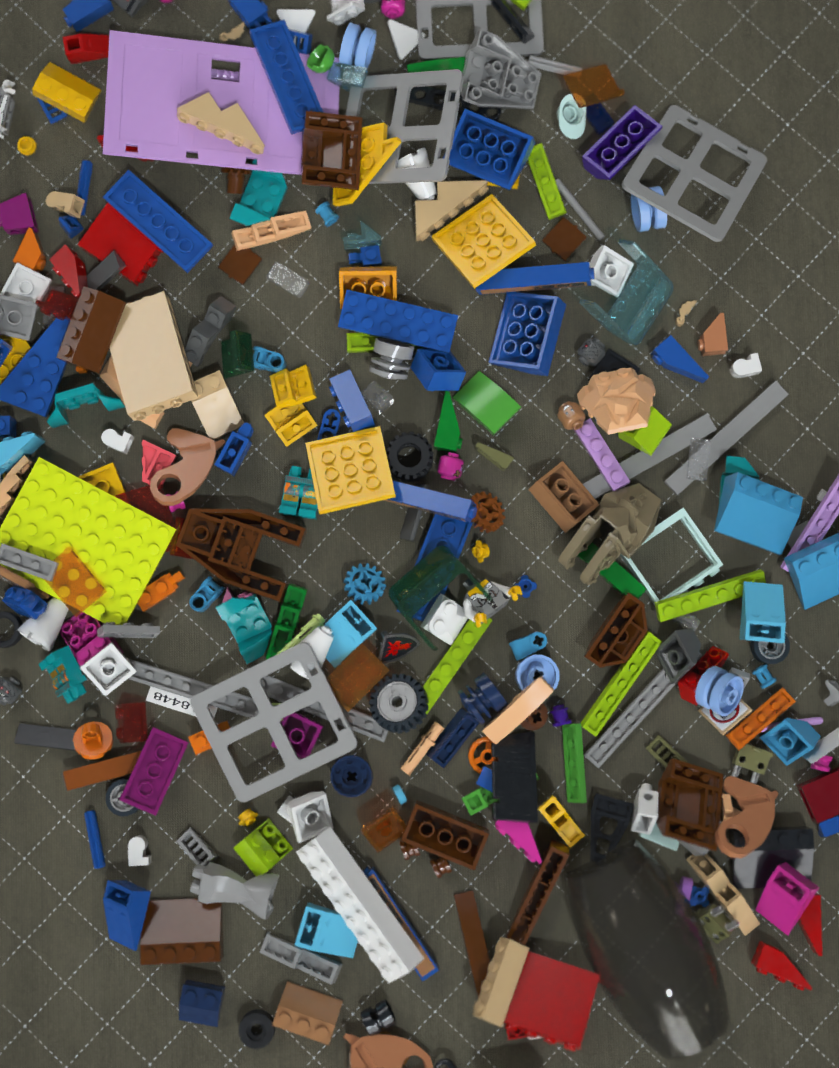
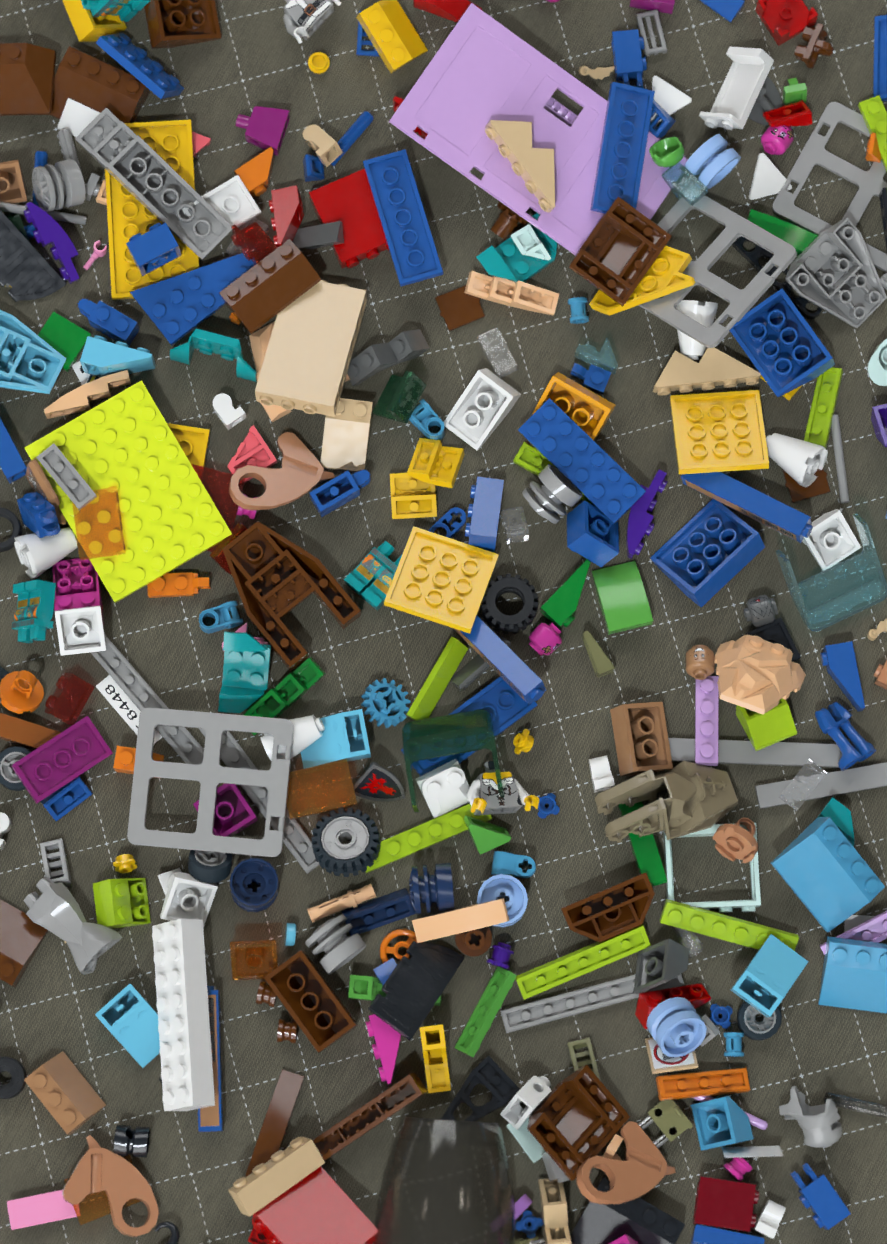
camera: 30 degrees right, 5 degrees down
(128, 630) = (123, 605): light grey plate -> none
(175, 796) = (66, 798): none -> blue slope
(262, 186) = (529, 244): none -> light aqua slope
(301, 327) = (481, 408): none -> white slope
(301, 958) = (91, 1037): light grey slope -> none
(311, 783) = (209, 866): none -> black wheel
(317, 620) = (315, 710): yellowish green pin -> none
(391, 544) = (437, 680): none -> lime tile
(437, 782) = (335, 944): none -> light grey wheel
(464, 339) = (639, 520): none -> dark purple slope
(487, 511) = (553, 706): dark orange gear -> none
(496, 634) = (486, 835): none -> bright green slope
(549, 225) = (797, 457): none -> white cone
(550, 539) = (601, 774): none -> white leg
(680, 530) = (735, 841): none -> nougat tile
(690, 400) = (836, 718): none -> blue piece
(741, 656) = (725, 1011): none -> blue plate

